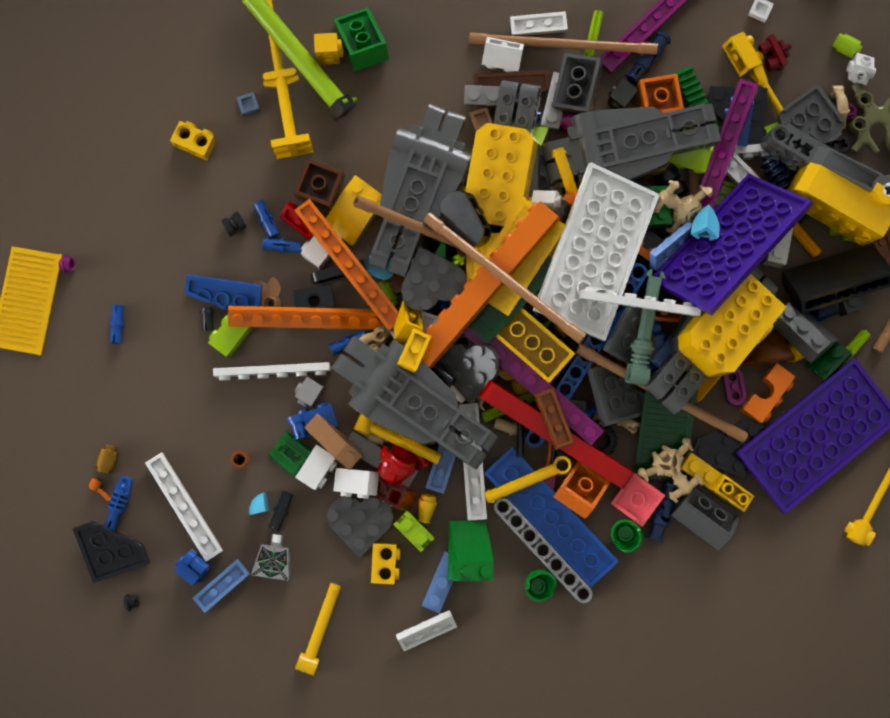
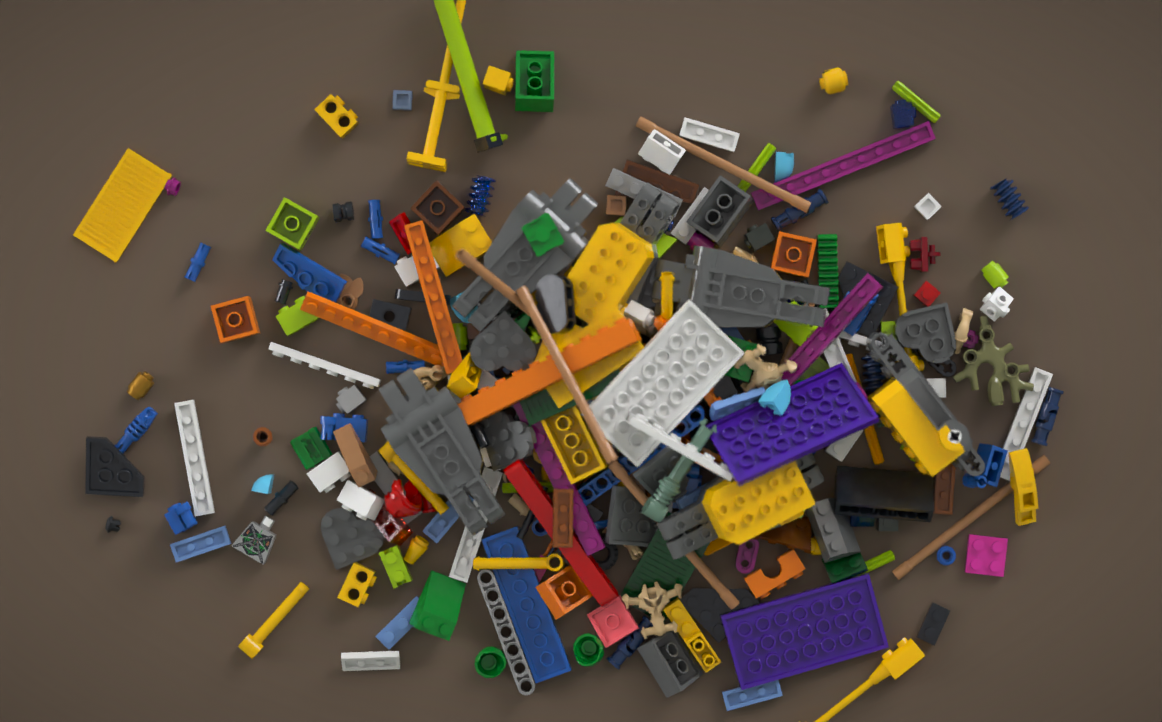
camera: 25 degrees right, 5 degrees up
(95, 484) = (120, 404): orange hand -> none
(171, 361) = (235, 319): none -> orange brick
(190, 252) = (292, 223): none -> lime brick
(352, 158) = (480, 195): none -> clear blue piece
(414, 350) = (459, 405): yellow plate -> none
(427, 160) = (542, 234): none -> green piece
(615, 24) = (783, 165): none -> medium azure brick
(784, 523) = (738, 698): none -> medium blue plate
(793, 87) = (927, 294): none -> red plate

